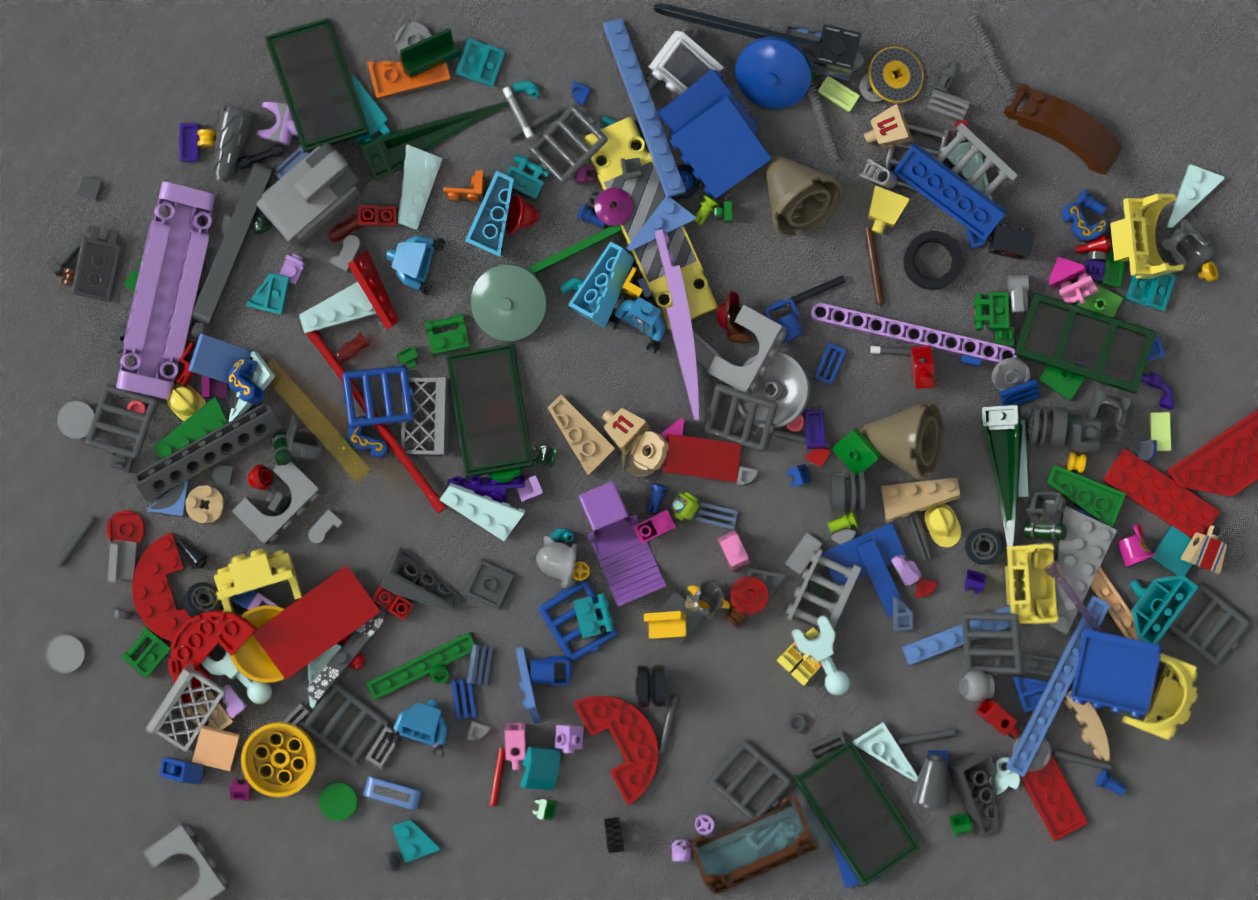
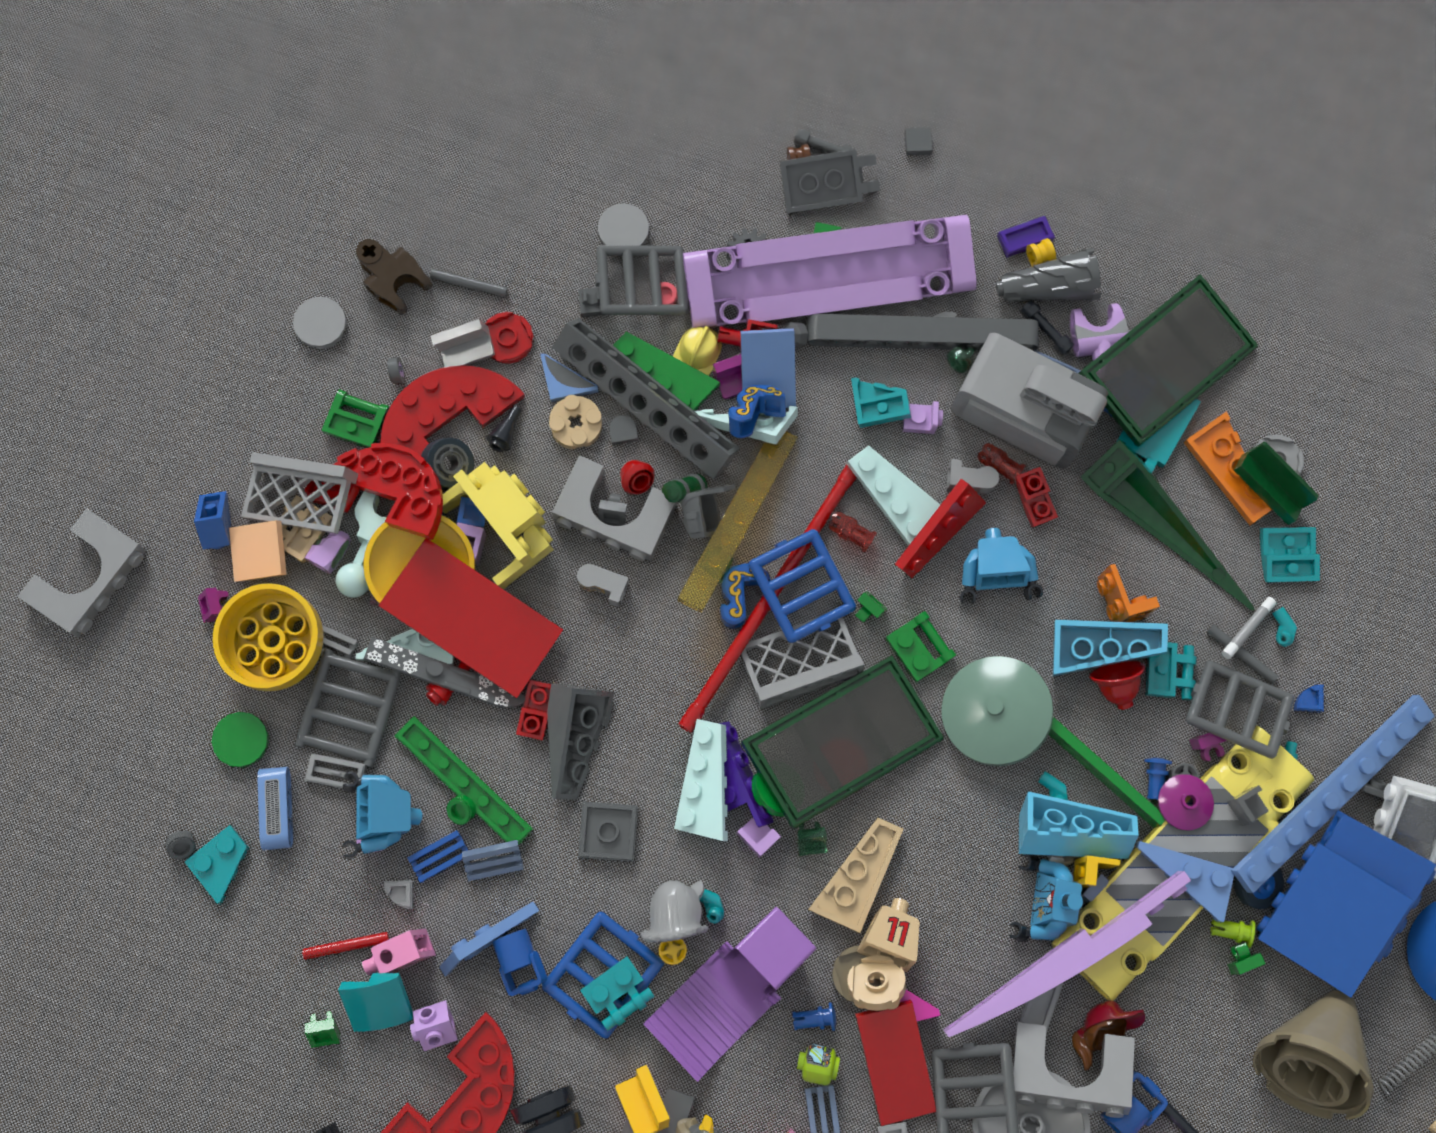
camera: 60 degrees right, 10 degrees down
(48, 593) = (389, 272): none -> dark brown piece
(418, 178) = (1102, 532): light aqua wing -> none
(654, 526) = (773, 1032): dark pink slope -> none

